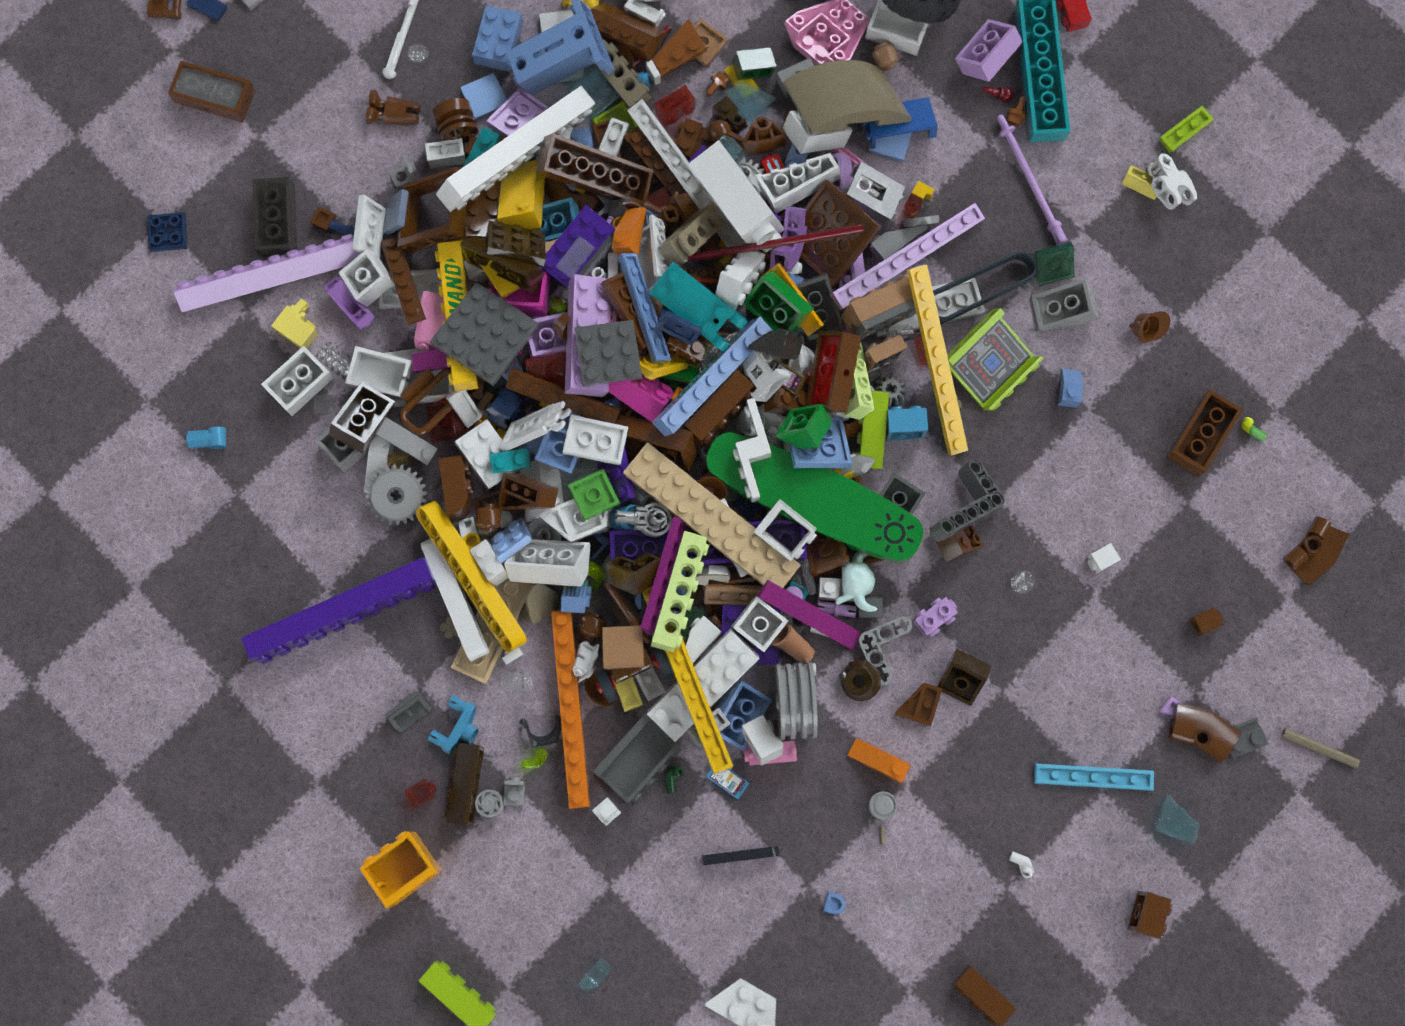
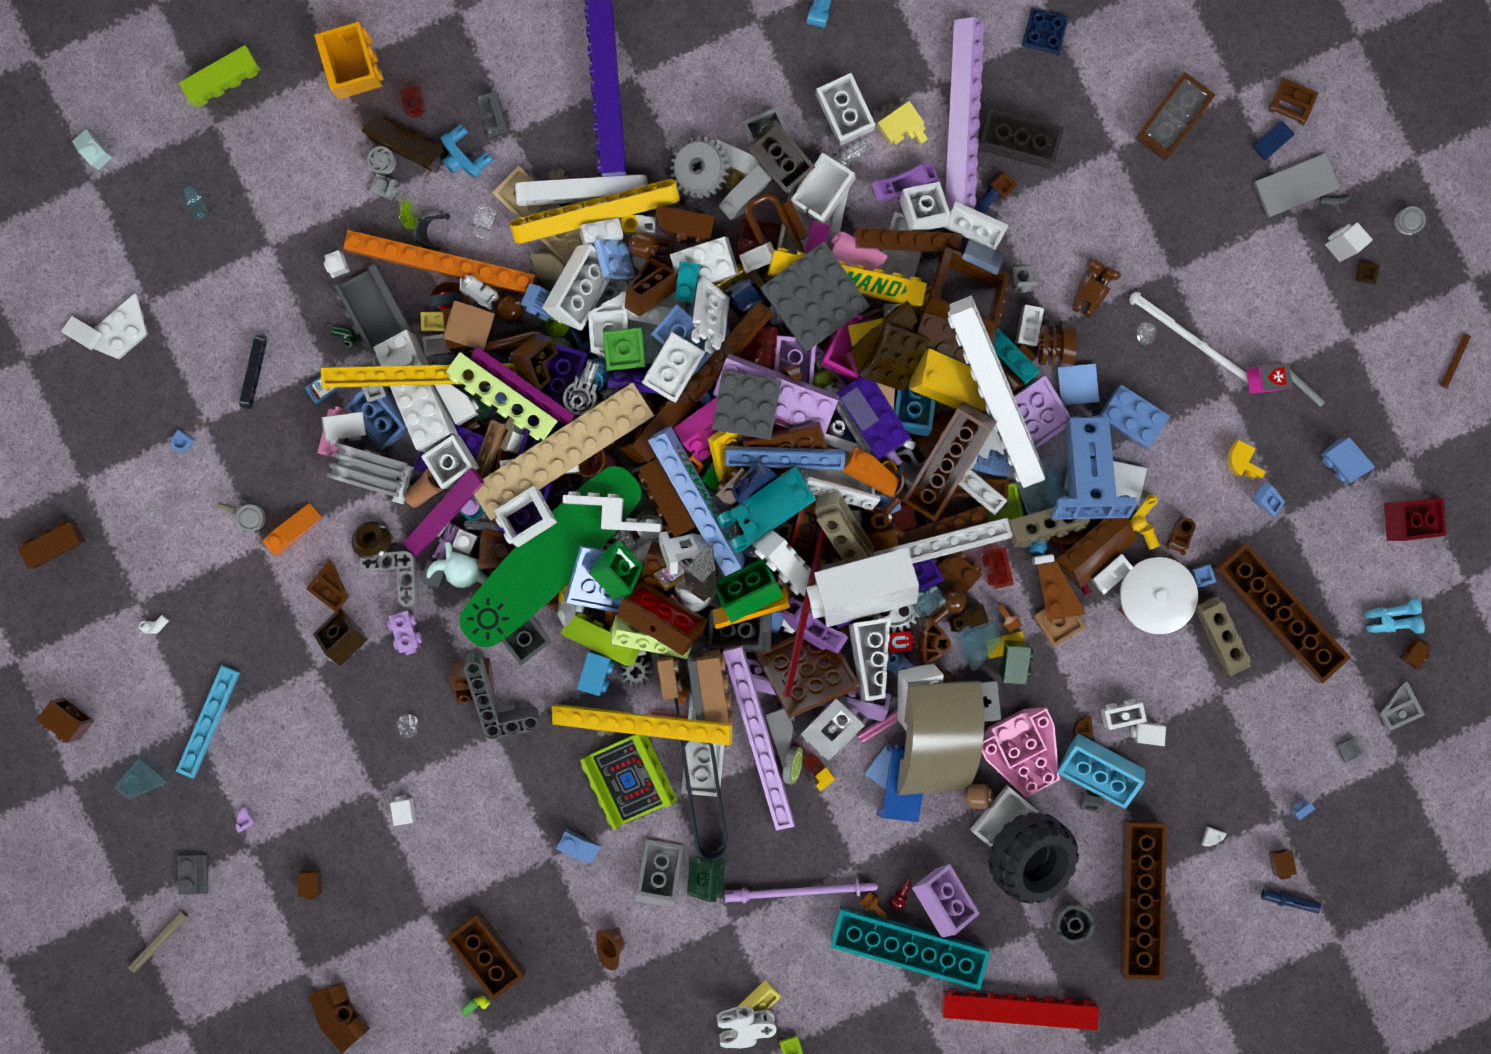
camera: 110 degrees right, 10 degrees up
(511, 656) = (506, 220): white plate -> none
(899, 330) = (683, 700): clear tile -> none
(1217, 733) = (204, 851): reddish brown panel -> none

